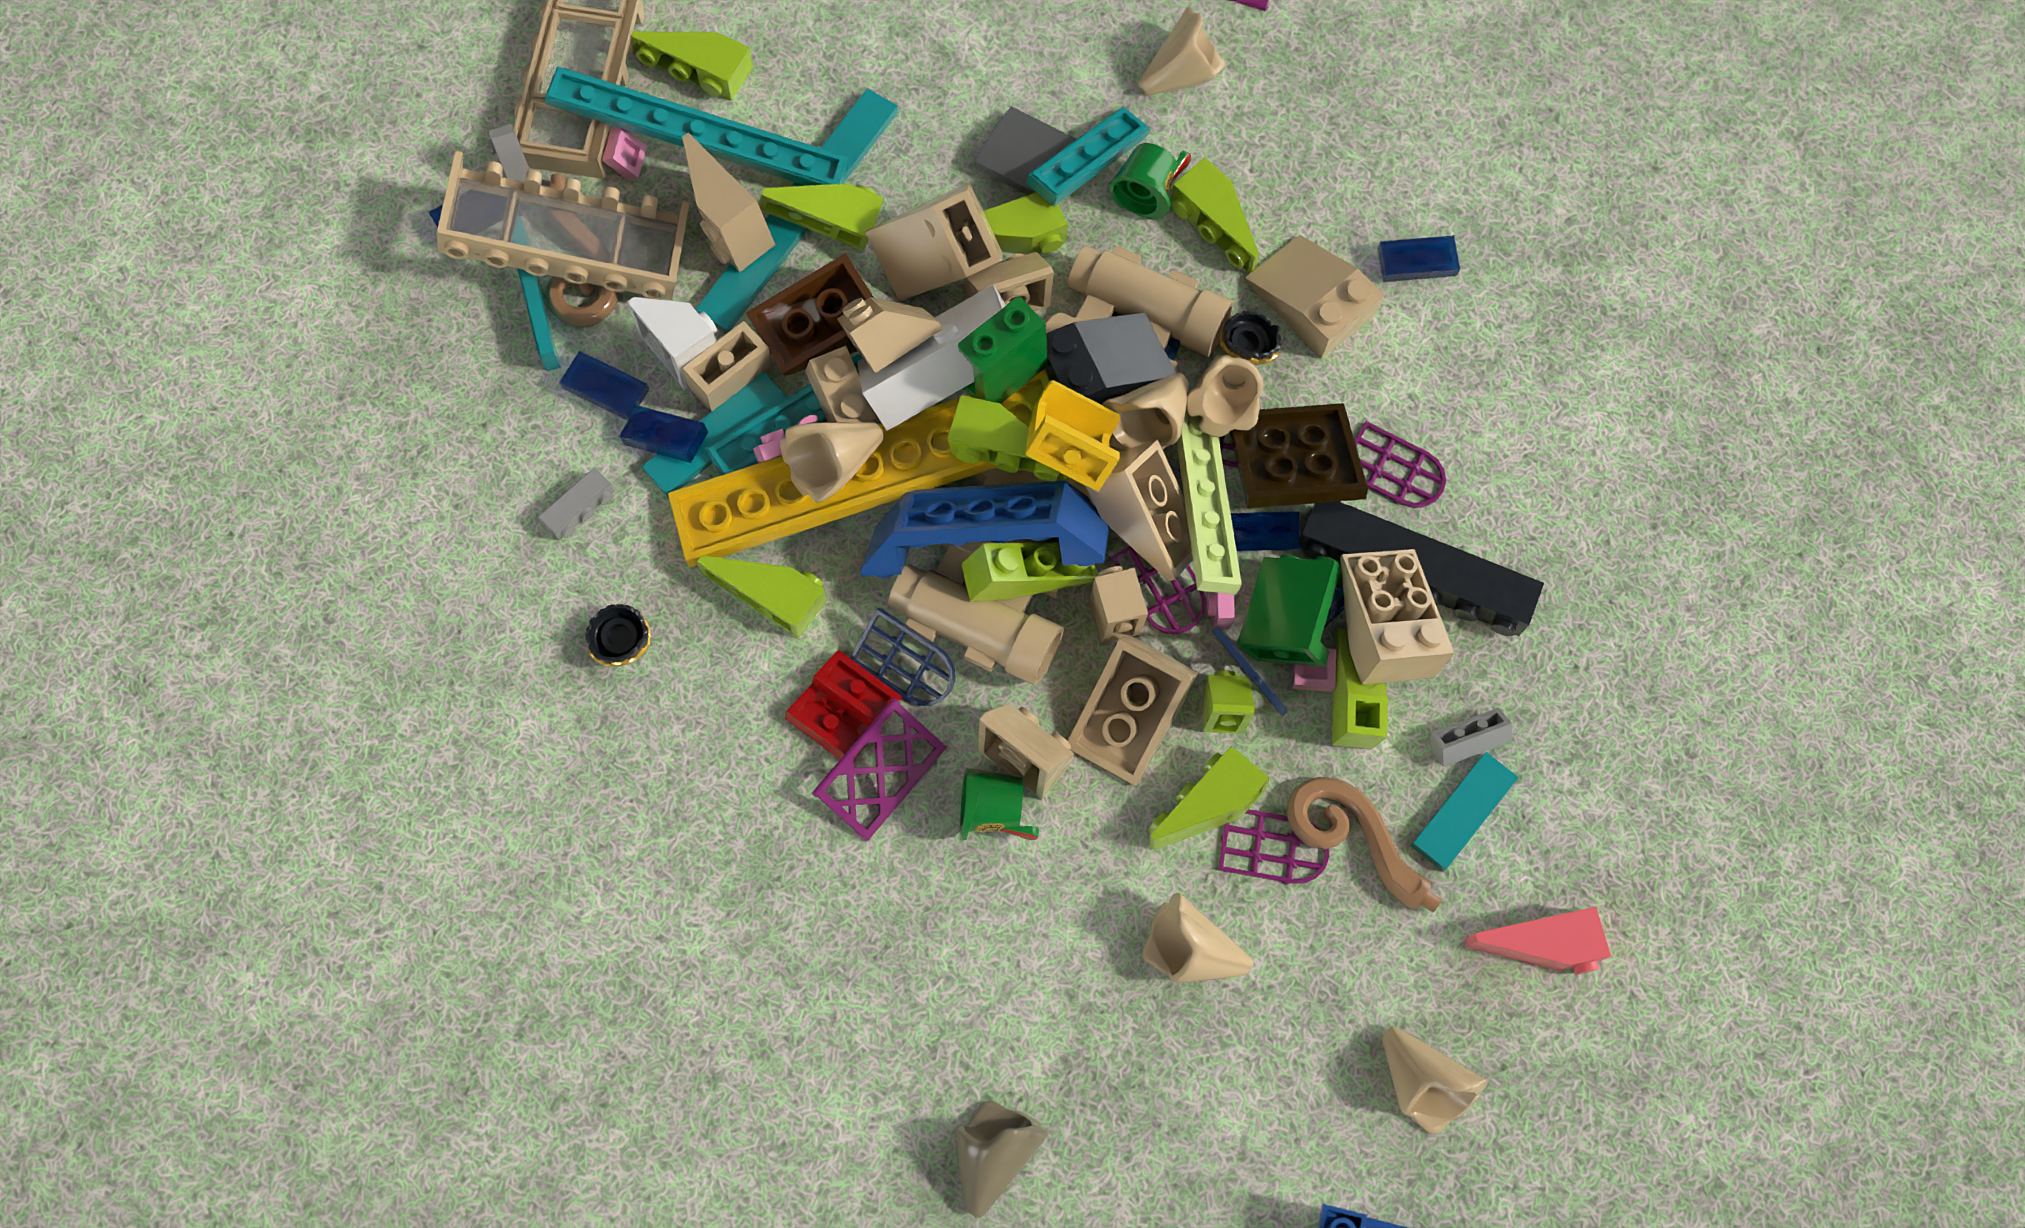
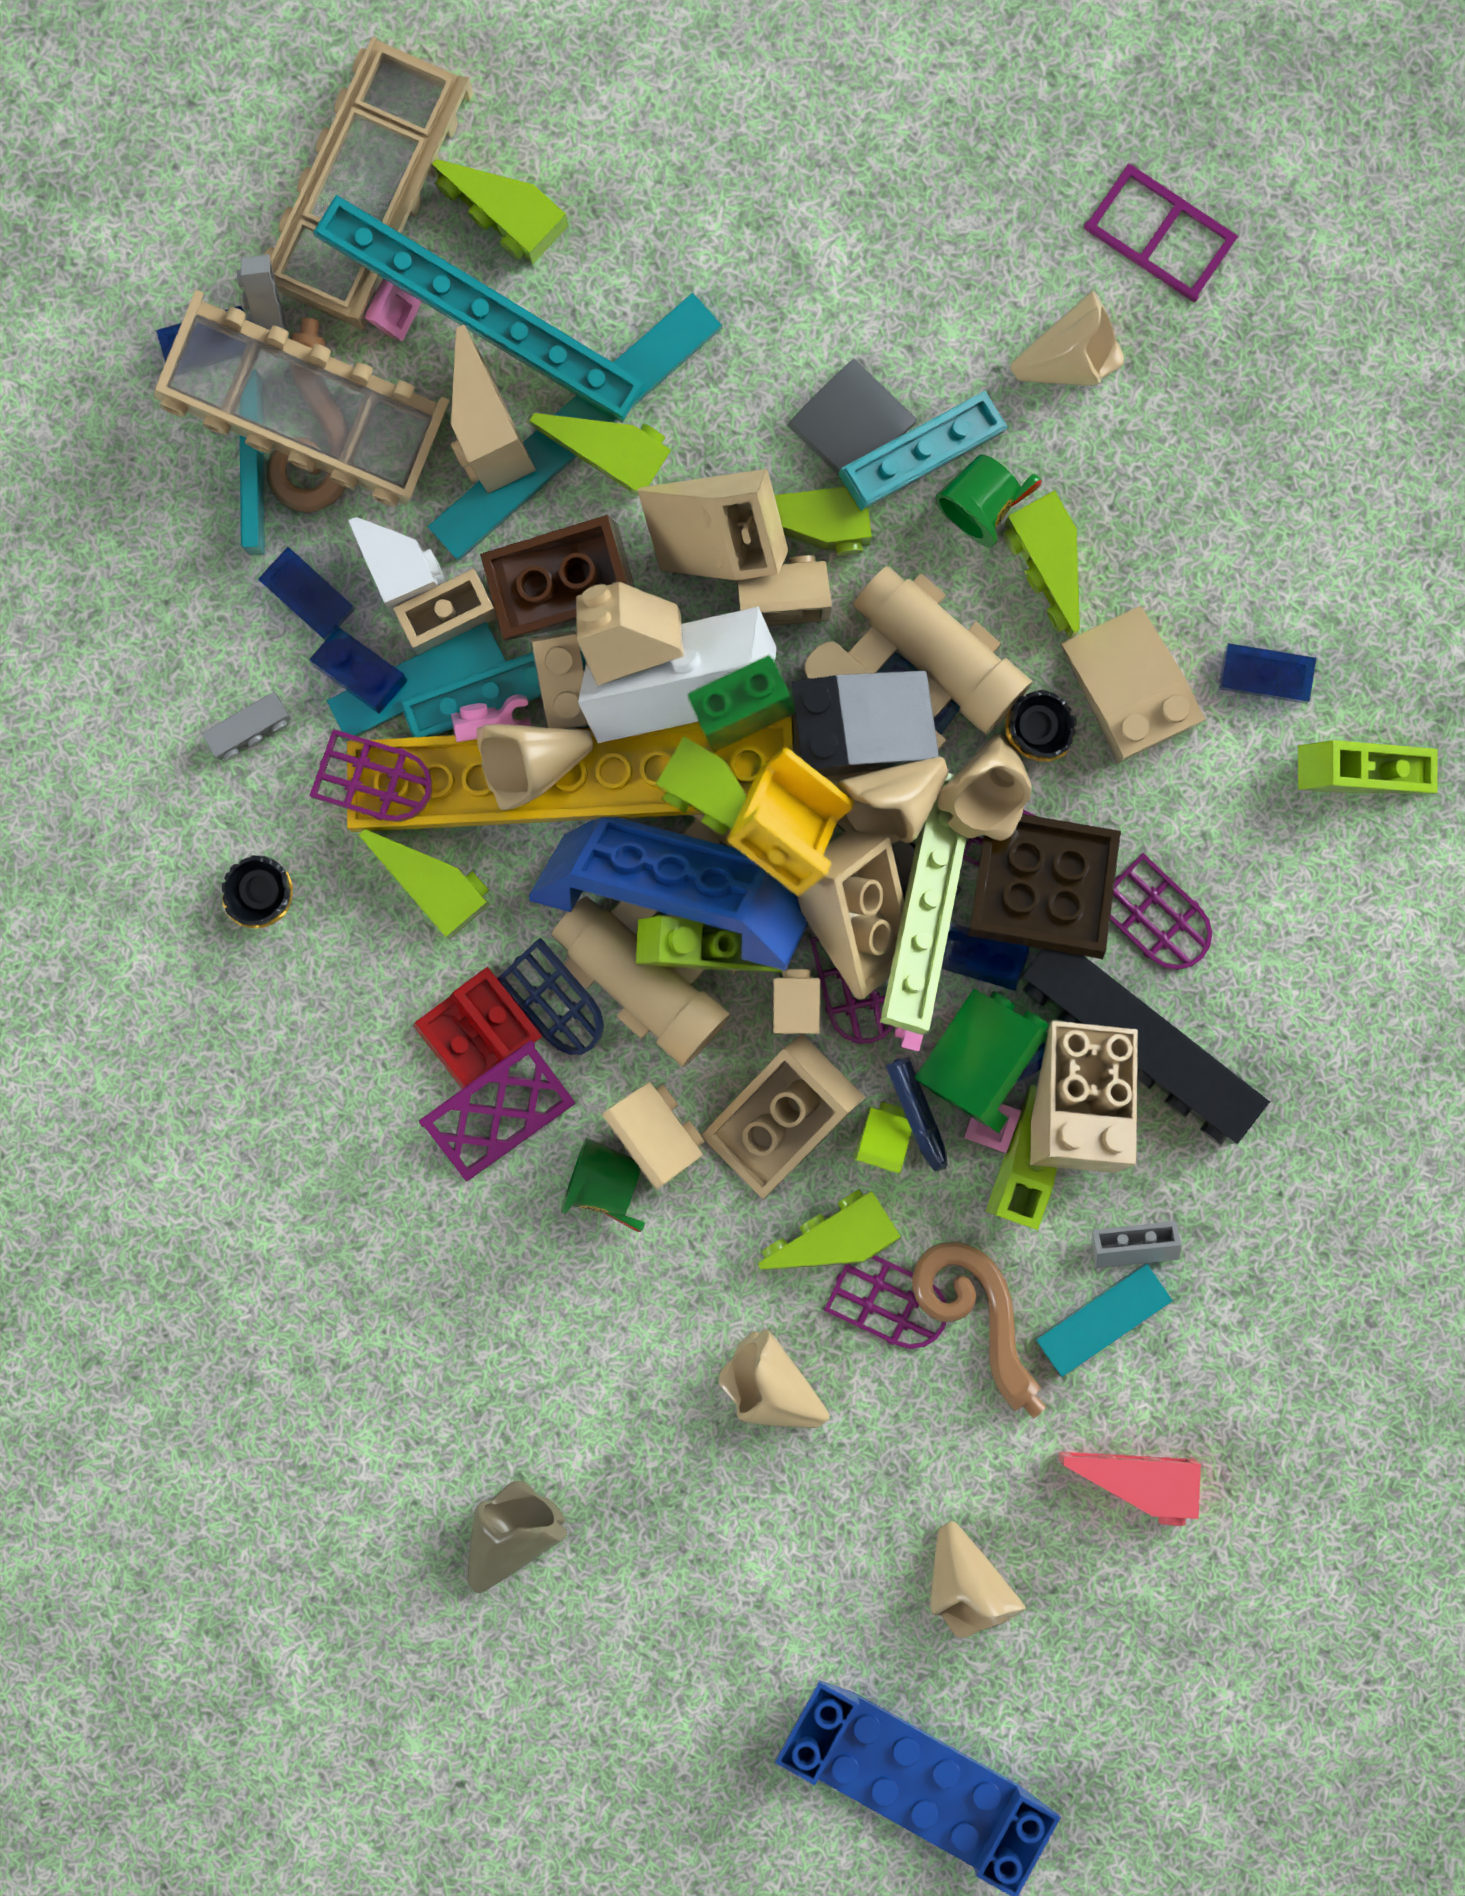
camera: 25 degrees right, 15 degrees up
(685, 523) = (355, 784): none -> magenta window
(1521, 308) = (1367, 768): none -> lime slope

